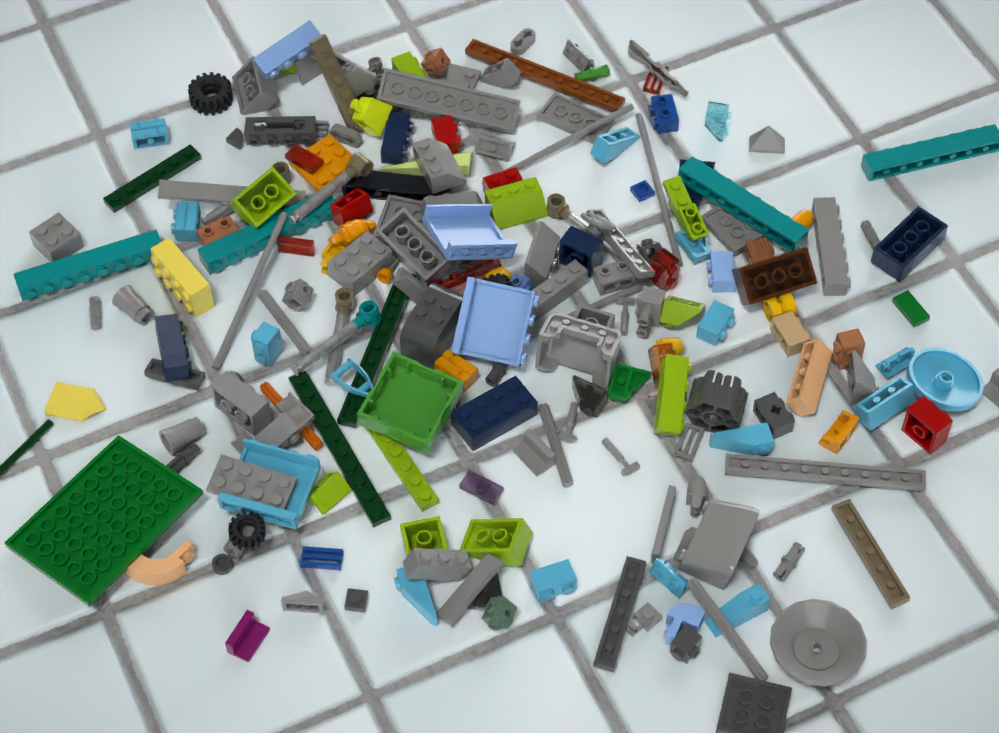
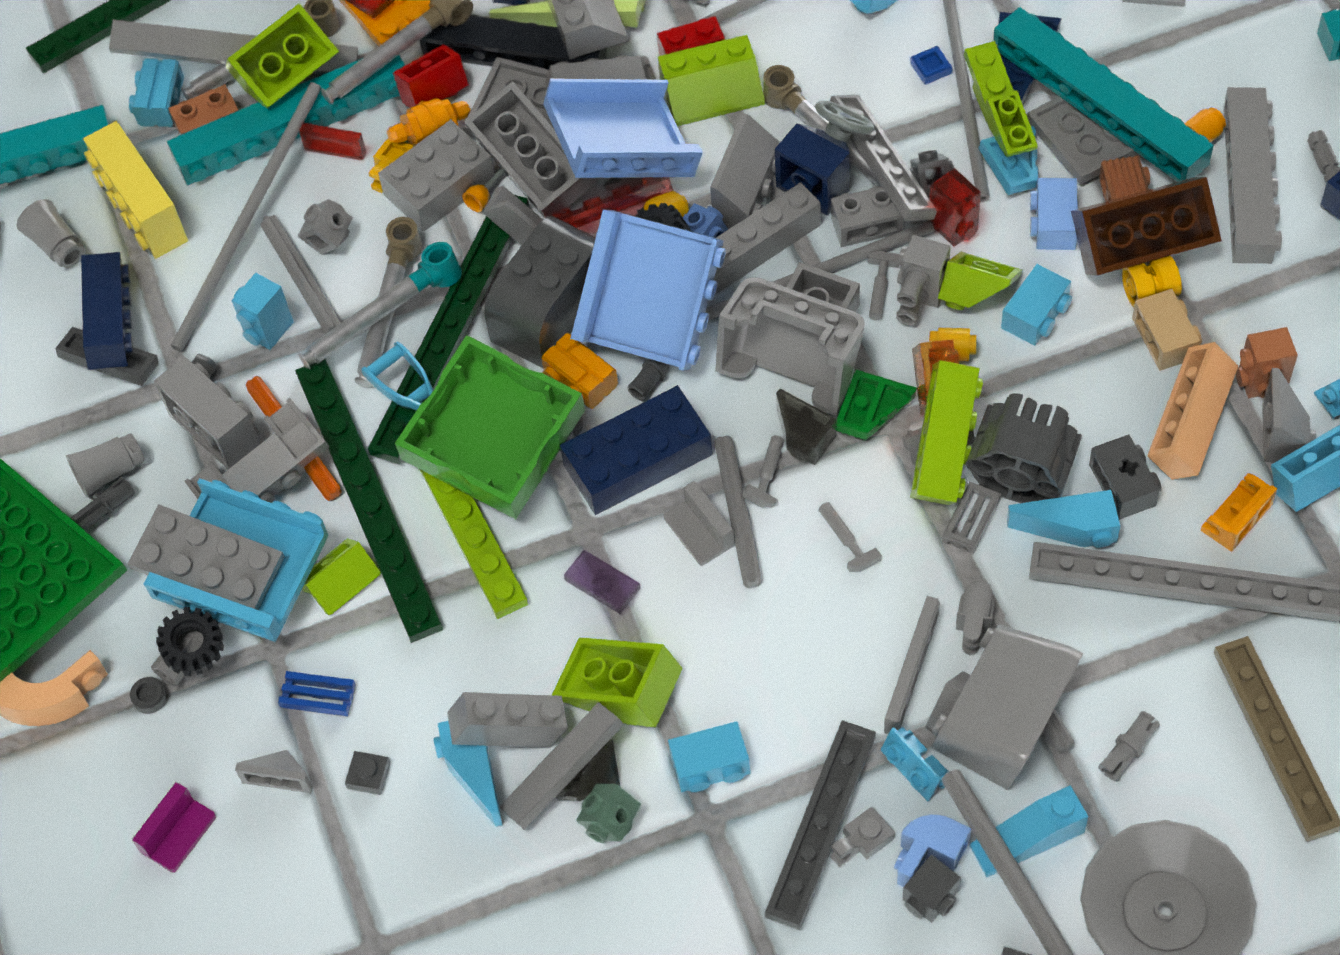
camera: 10 degrees right, 5 degrees up
(423, 534) = (490, 665): lime brick -> none

